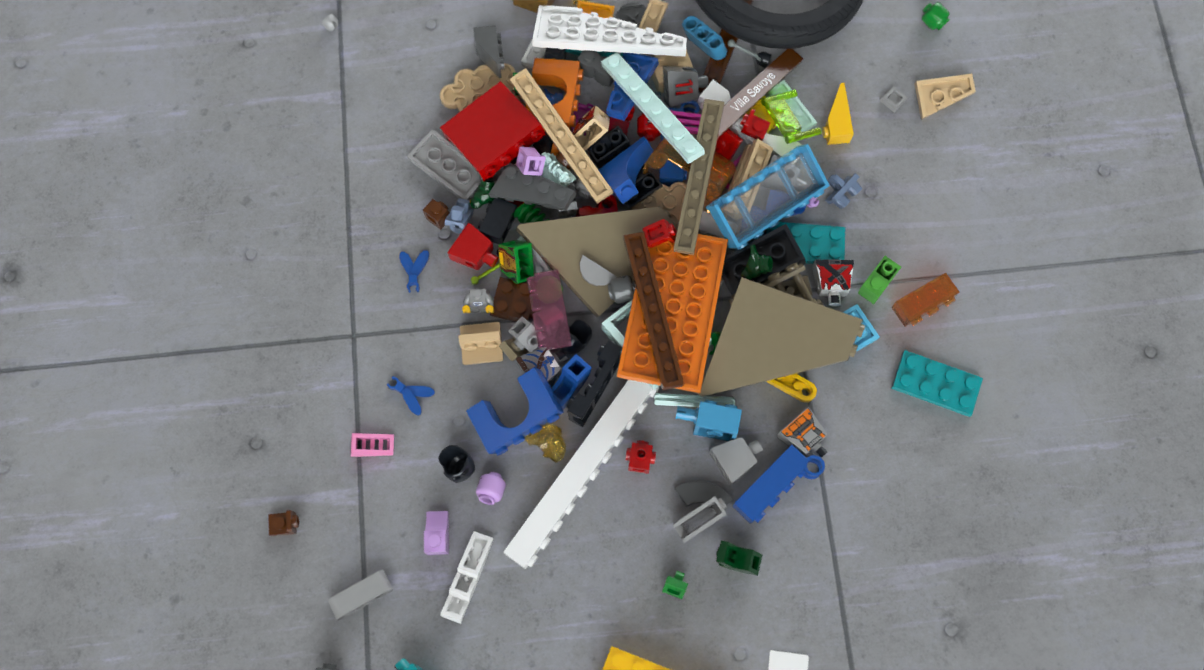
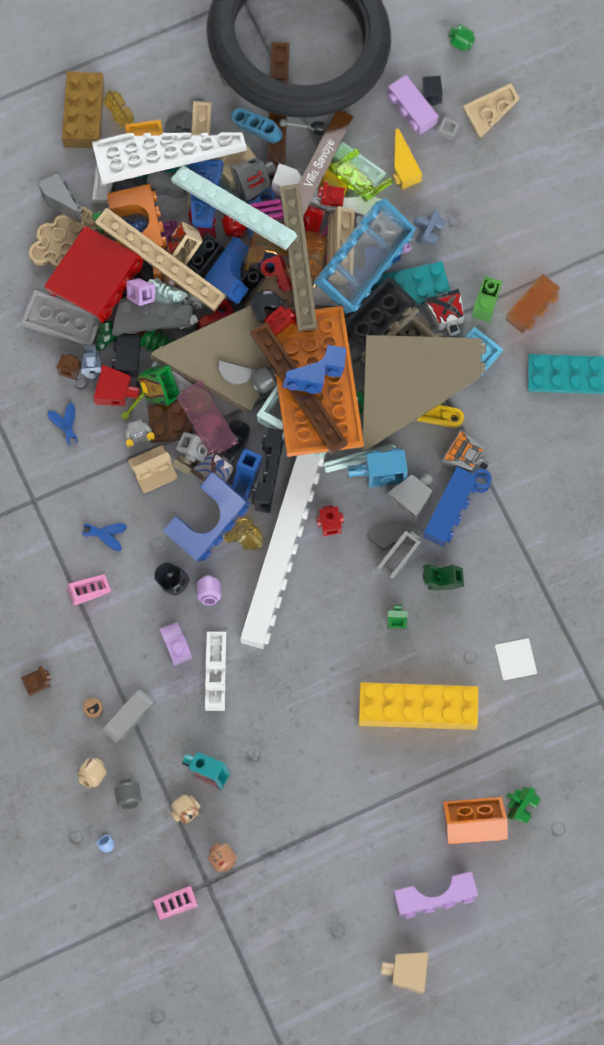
camera: 20 degrees left, 0 degrees up
(299, 643) = (91, 772): none -> tan head
(328, 572) = (93, 708): none -> medium nougat tile
(649, 208) = (265, 300): none -> black helmet
(669, 302) = (311, 377): none -> arch
(677, 184) = (284, 282): none -> red plate
(757, 265) = (375, 320): dark green animal -> none
(865, 65) = (412, 105): none -> lavender brick
(889, 57) = (432, 89): none -> black brick

